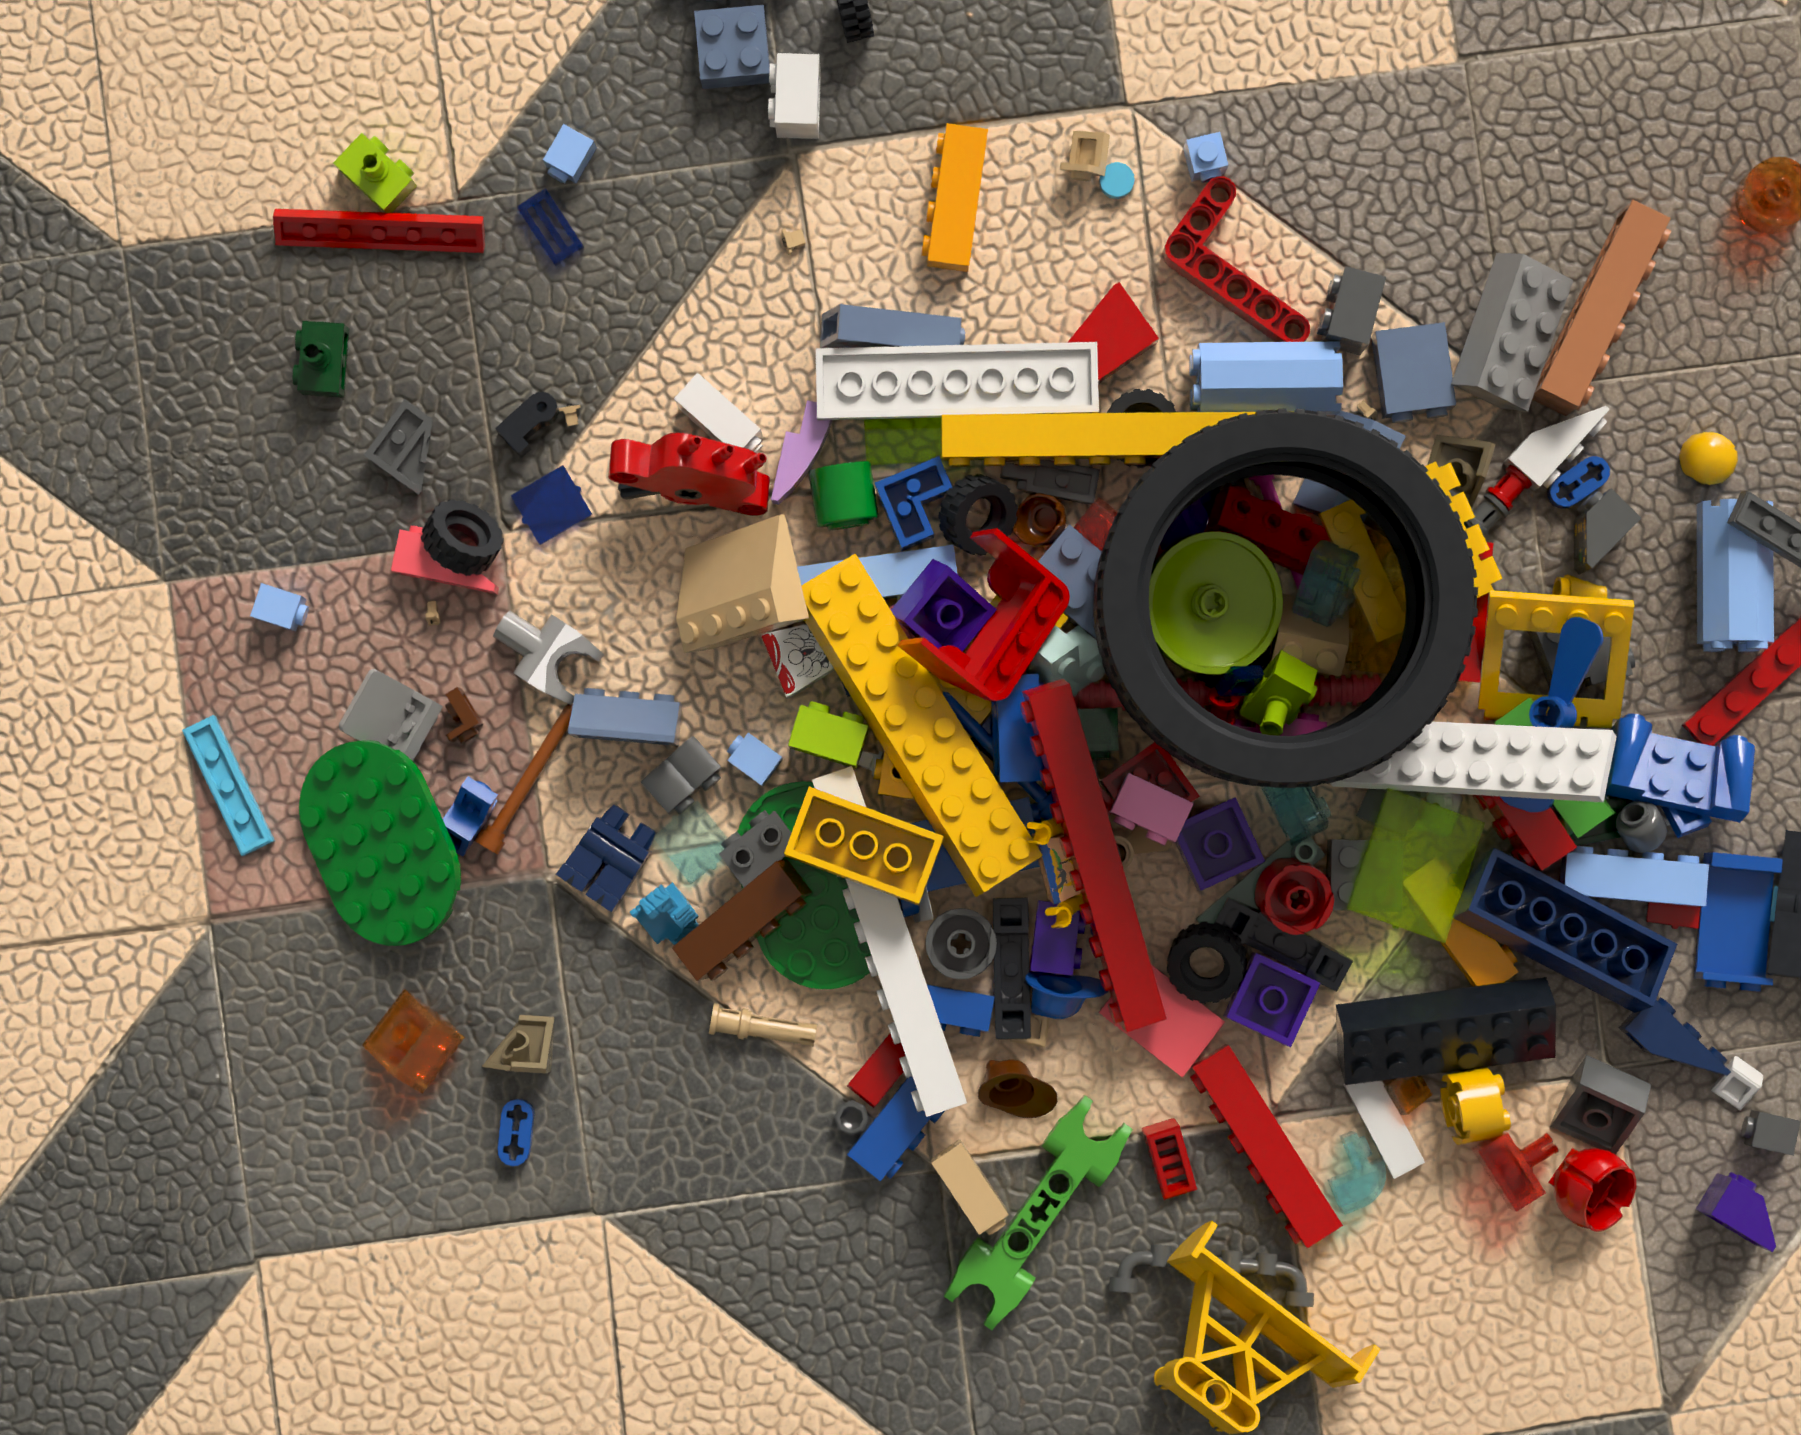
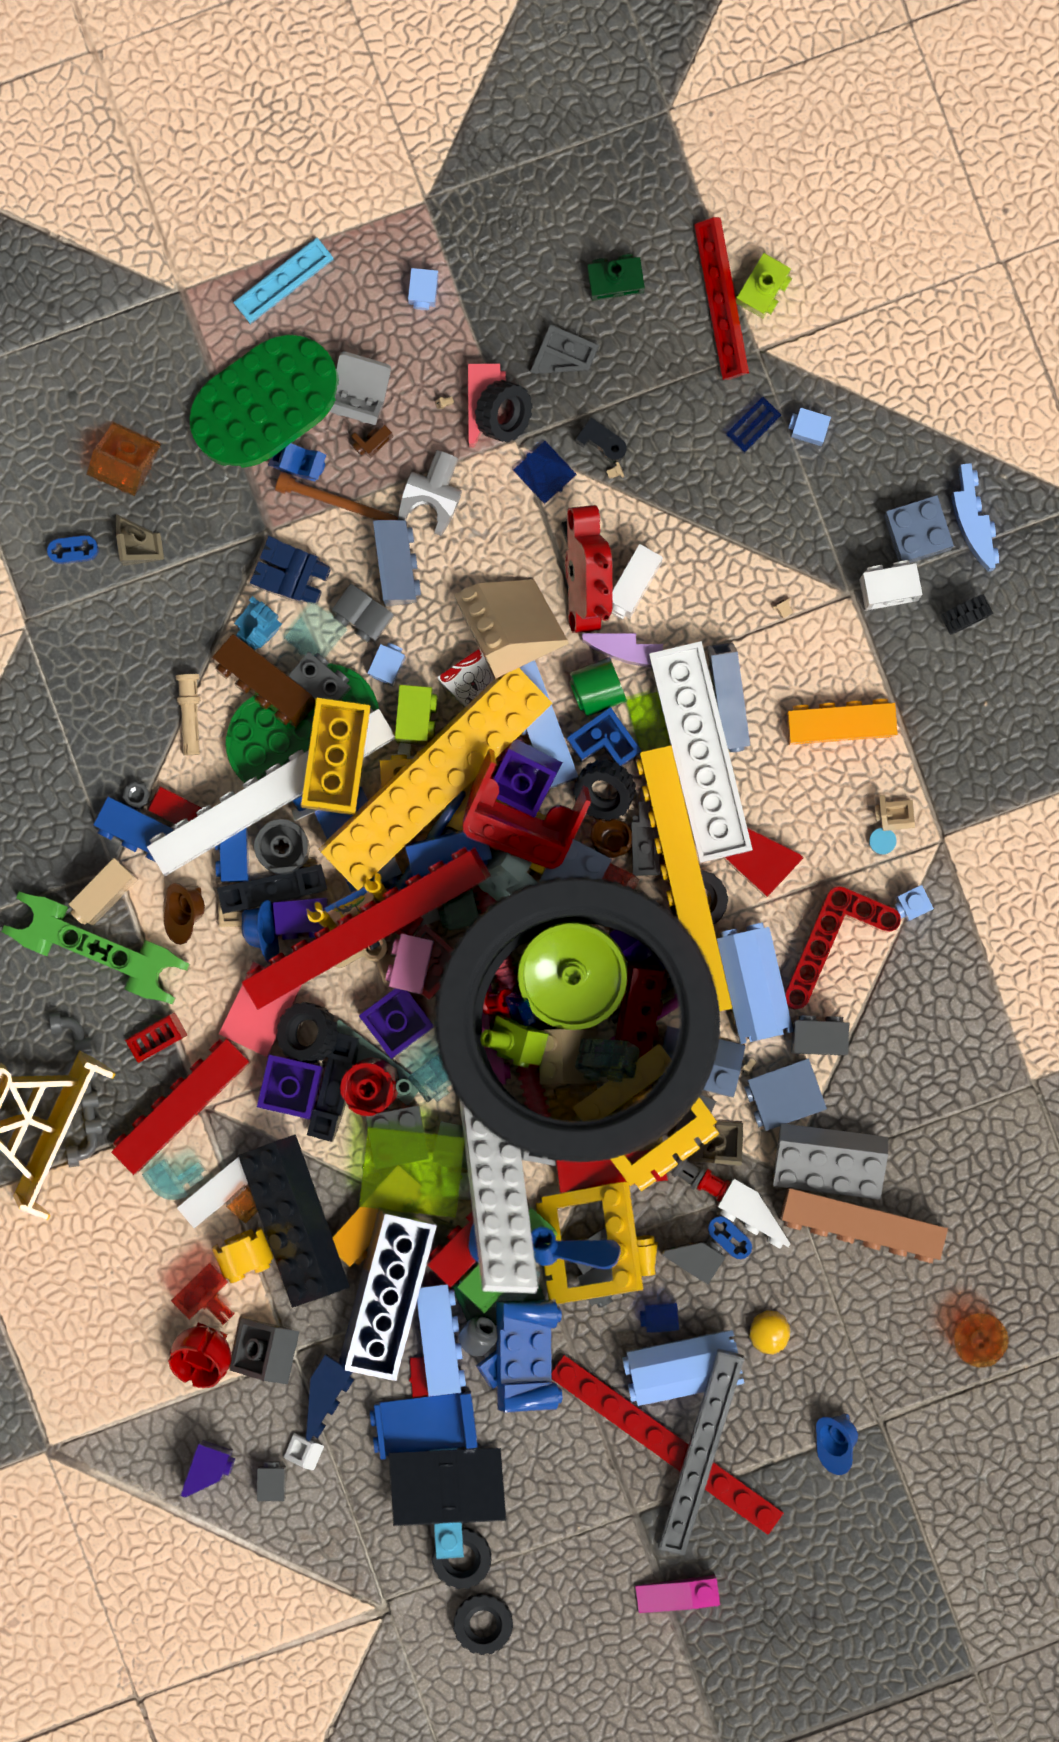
camera: 80 degrees right, 0 degrees up
(1662, 591) = (660, 1317): none -> clear blue brick

